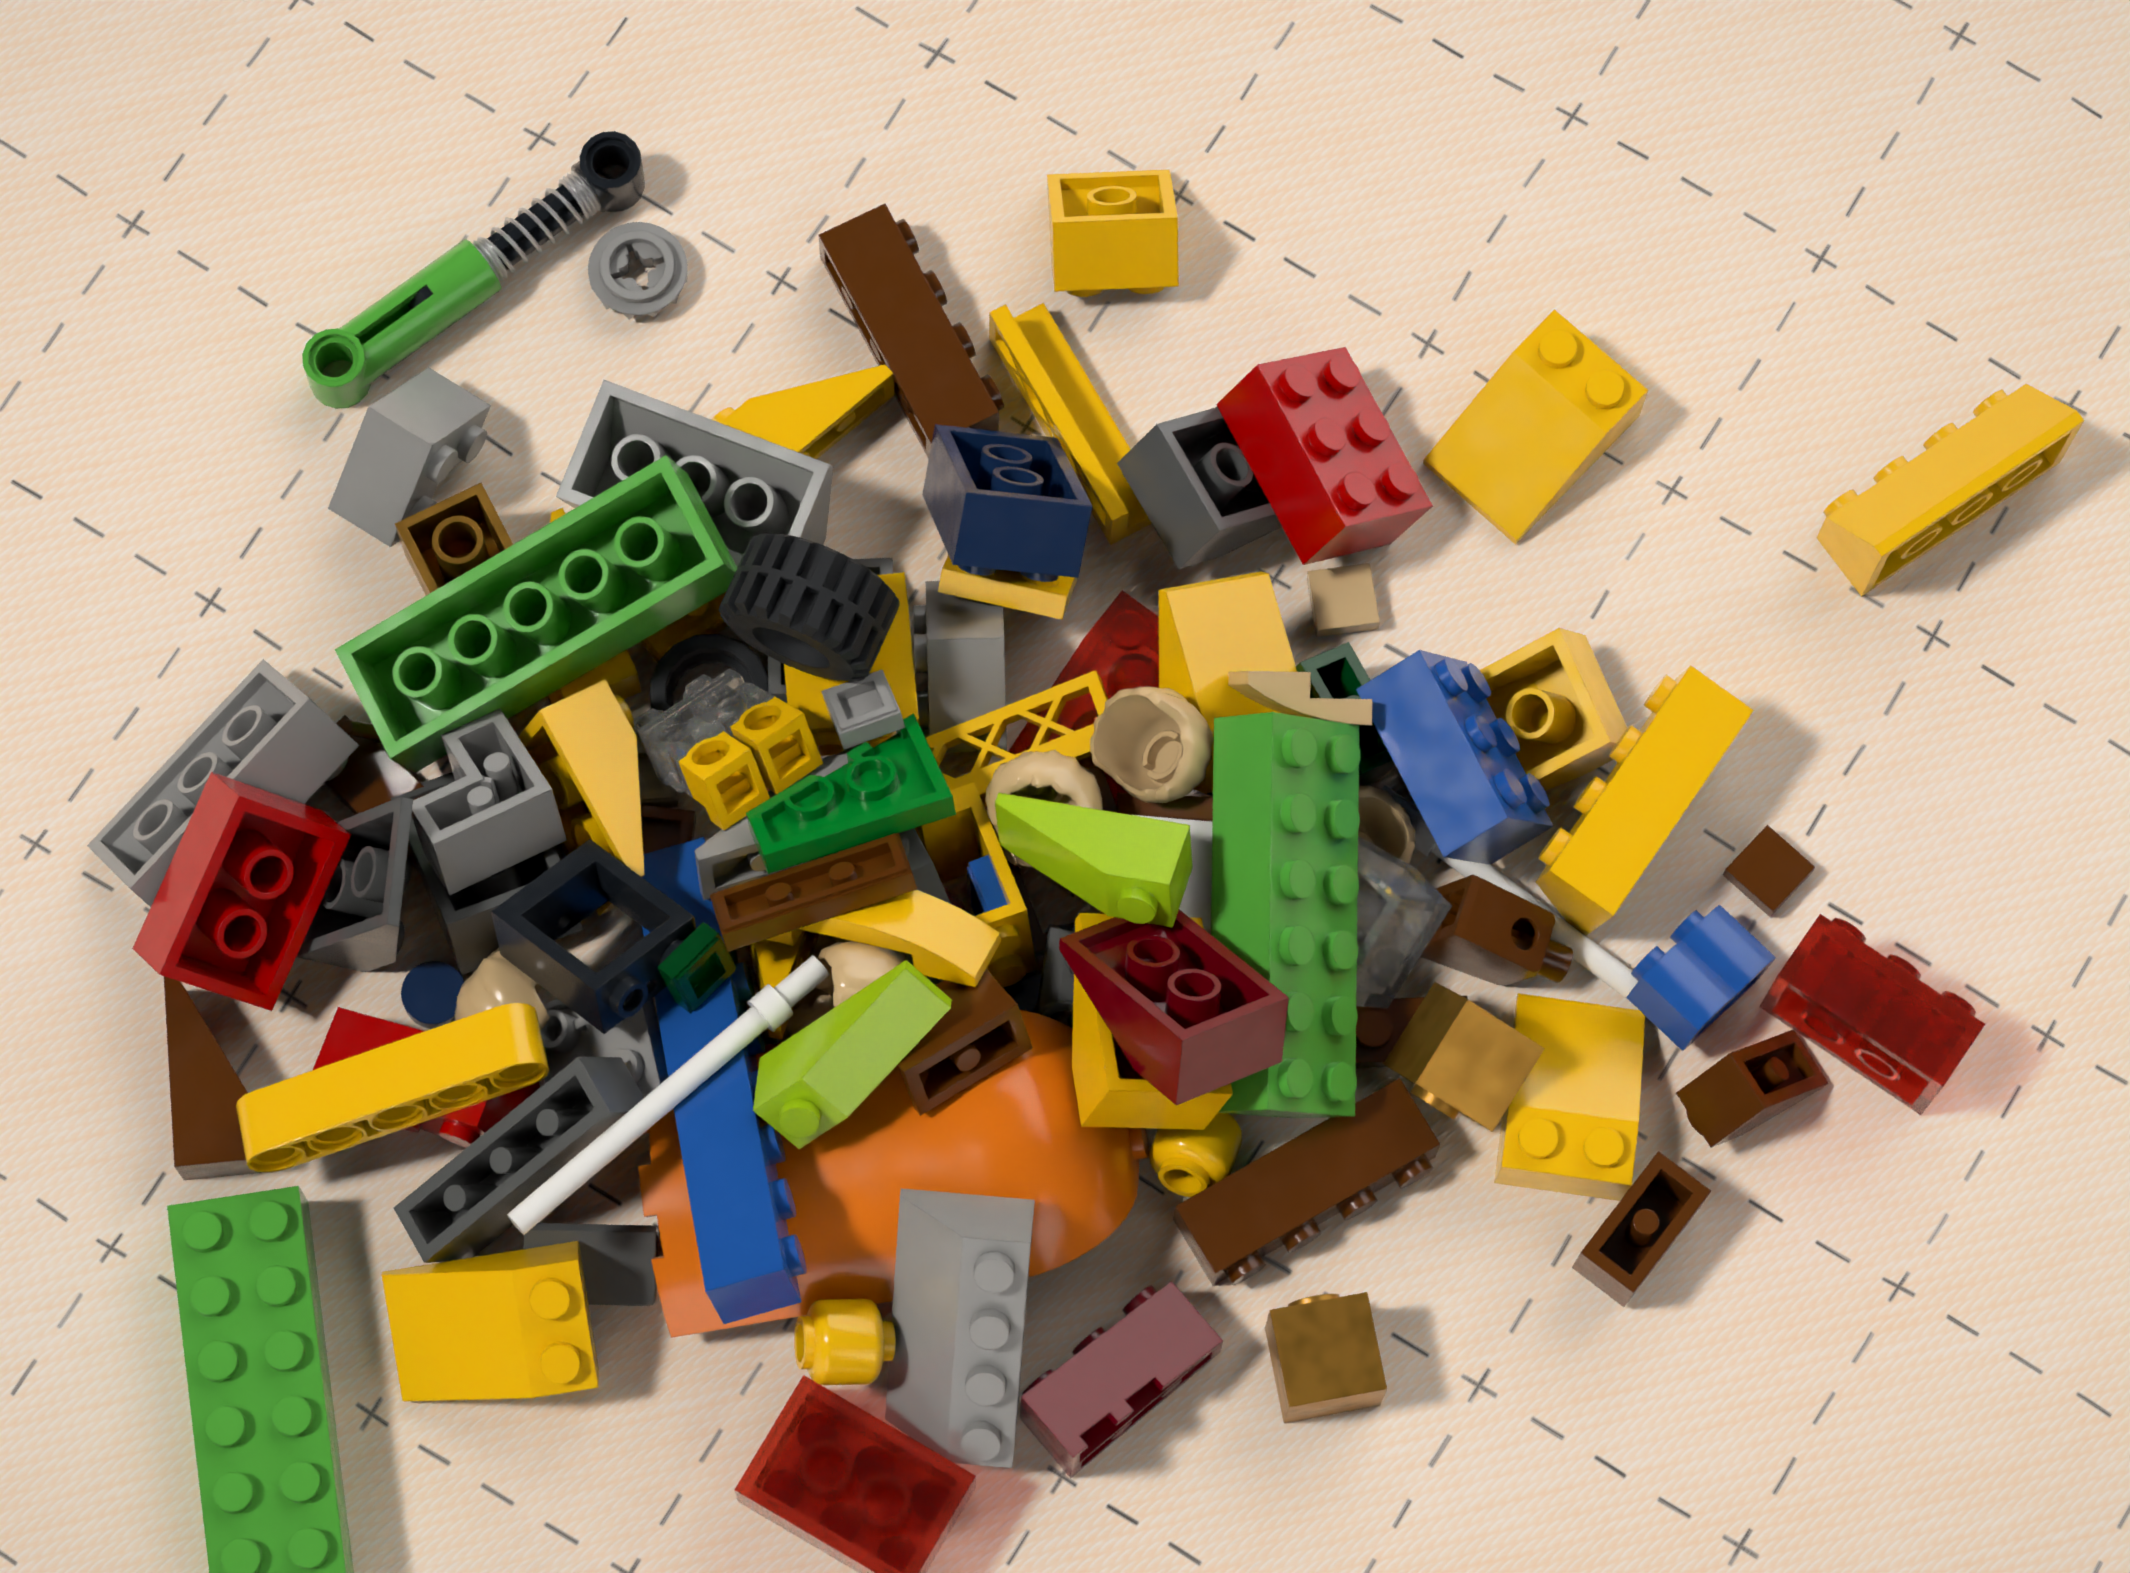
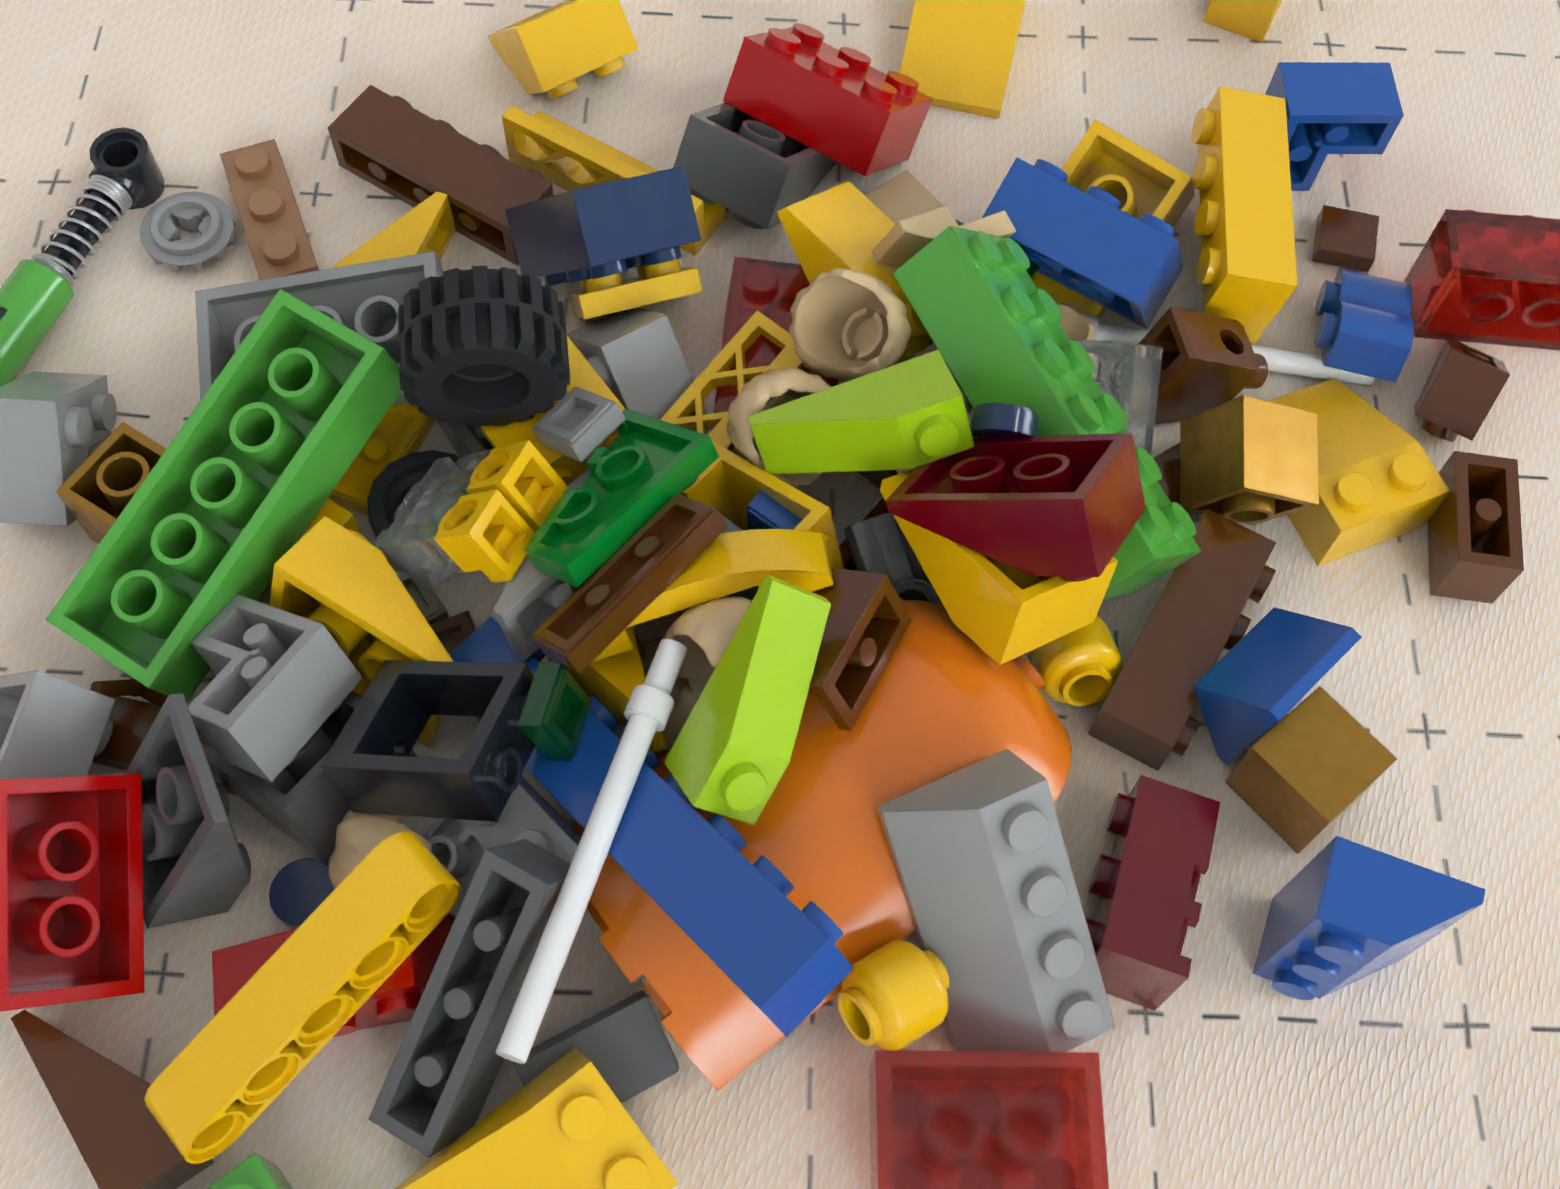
camera: 30 degrees left, 10 degrees down
(723, 290) = (268, 211): none -> medium nougat plate
(1212, 919) = (1003, 421): none -> dark blue tile
(1247, 1497) = (1353, 917): none -> blue slope
(1339, 1255) = (1267, 676): none -> blue slope
(1808, 738) = (1334, 112): none -> blue brick

